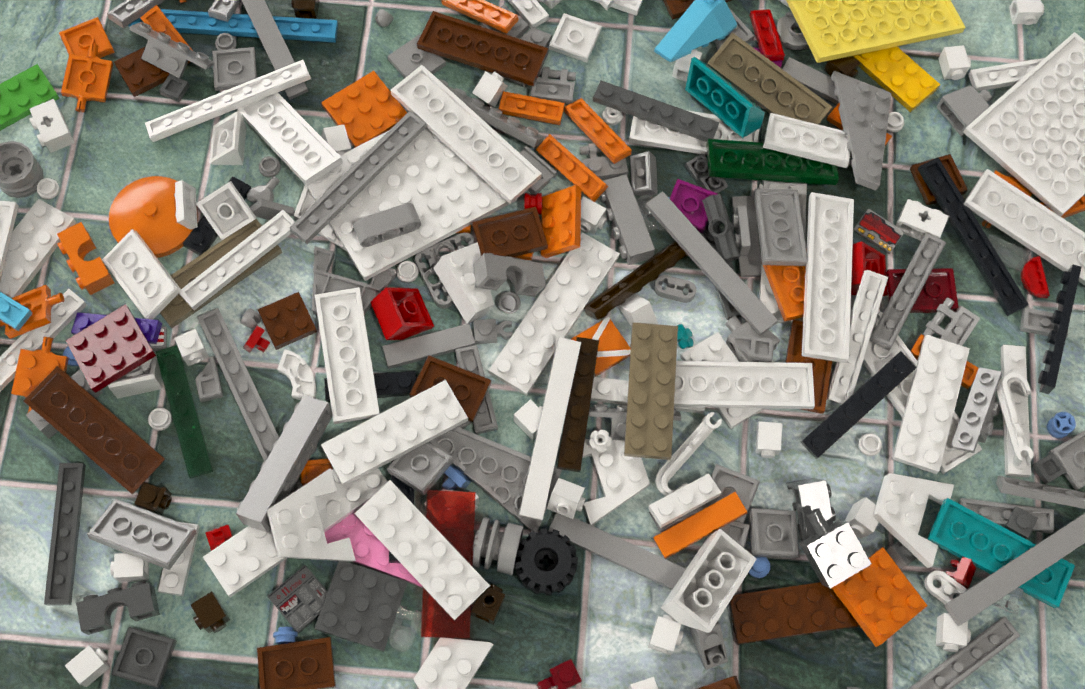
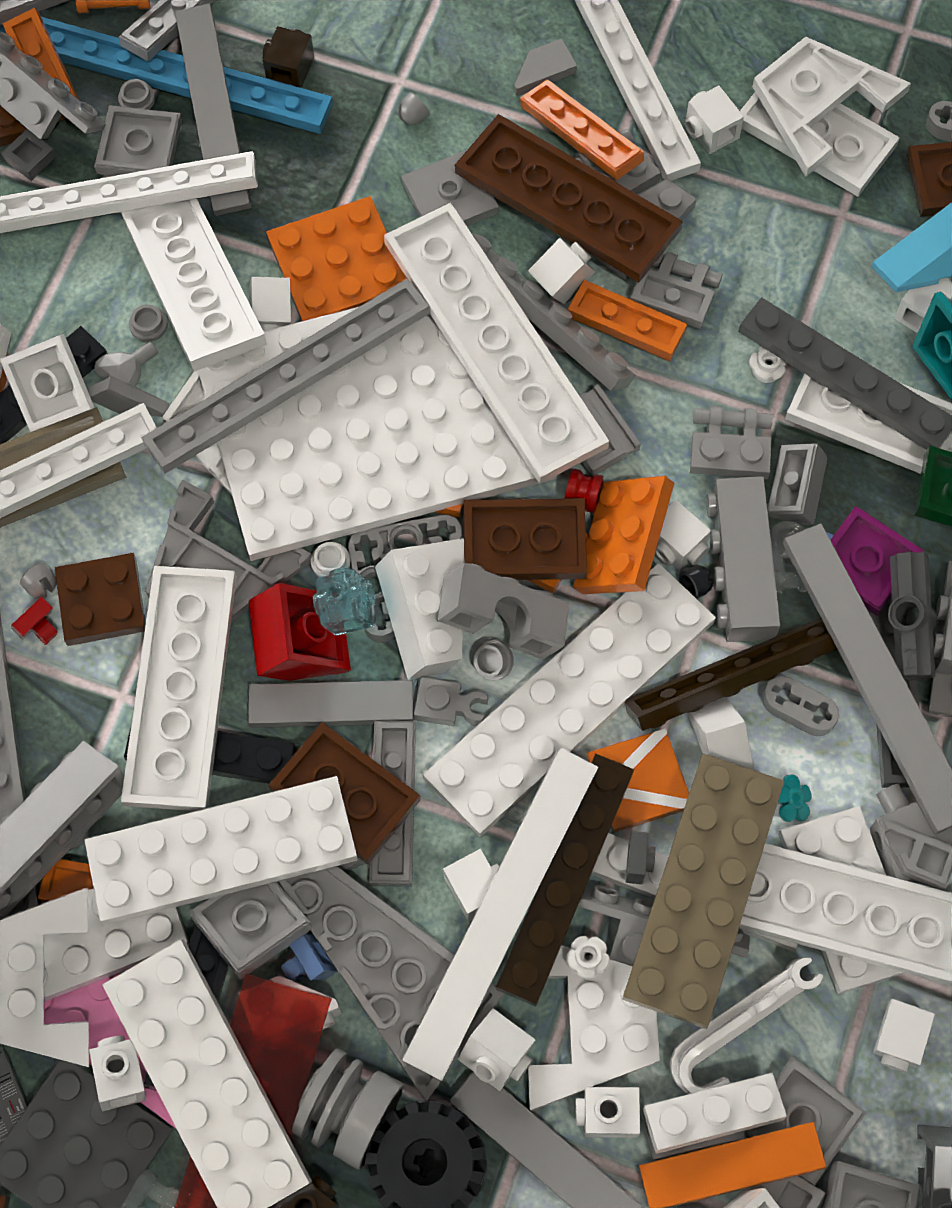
camera: 20 degrees right, 0 degrees up
(228, 141) = (93, 264): white slope -> none
(299, 374) = (94, 701): white tile -> none
(373, 558) = (117, 1073): none -> white brick
(387, 224) = (311, 471): light grey beam -> none
(423, 289) = (344, 601): none -> clear light blue brick
(572, 168) = (669, 443): orange tile -> none
(575, 37) = (738, 213): white tile -> none
(597, 130) = (734, 387): orange tile -> none
(604, 236) = (696, 580): none -> black hinge
(613, 383) = (639, 858): none -> dark grey plate
(631, 515) = (609, 1112): none -> white brick
(699, 171) = (899, 499): flat silver slope -> none

